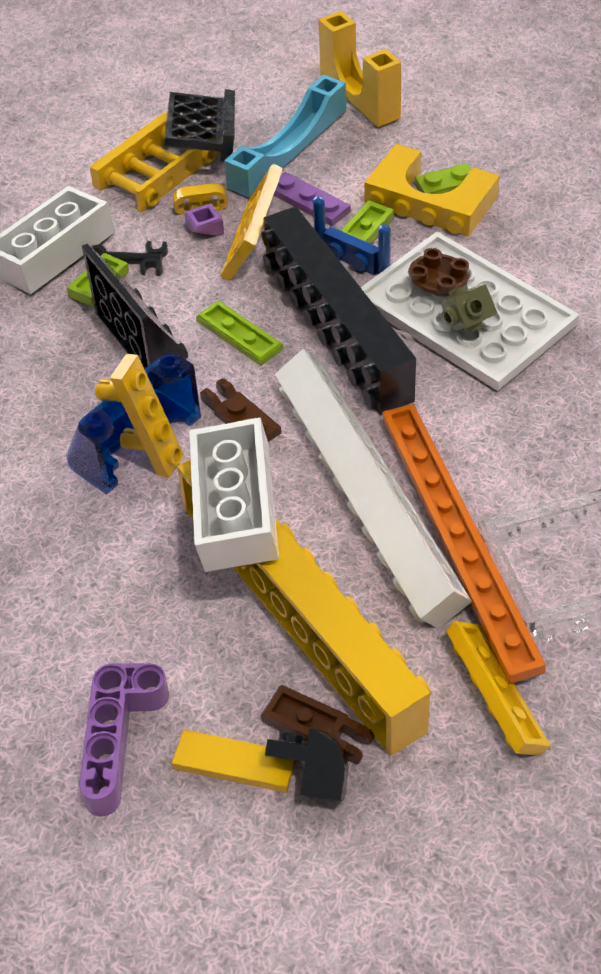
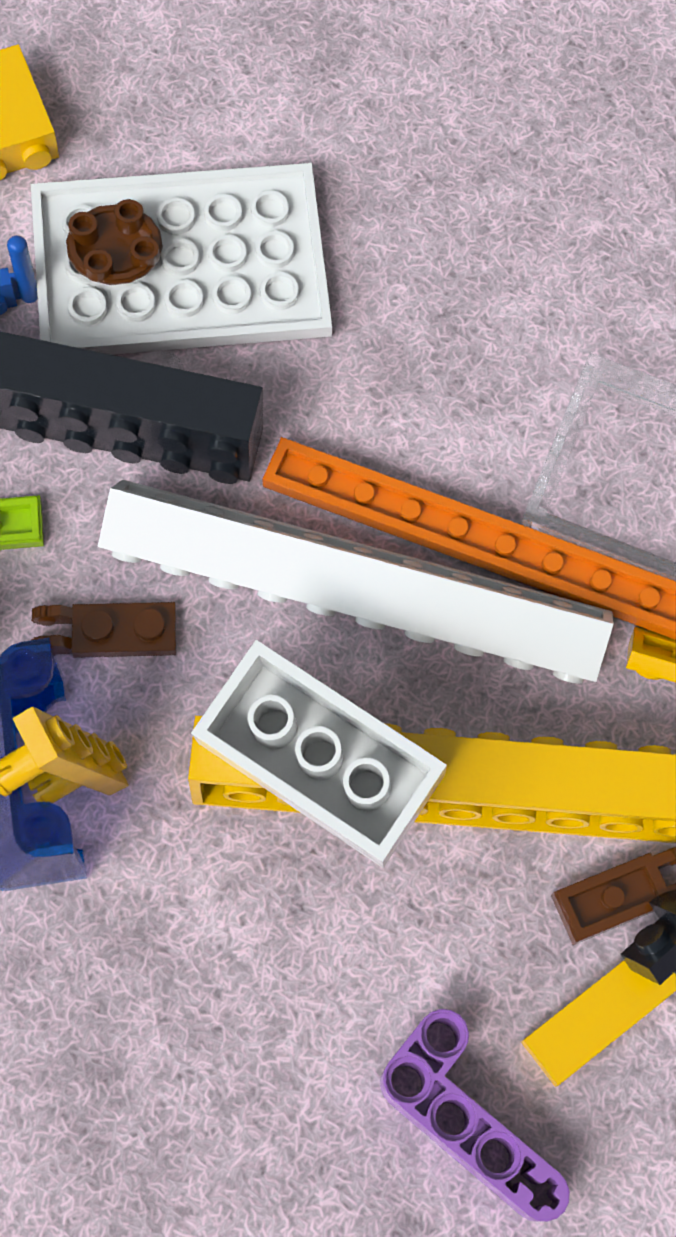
camera: 60 degrees left, 20 degrees up
(468, 308) = (213, 263): olive brick -> none

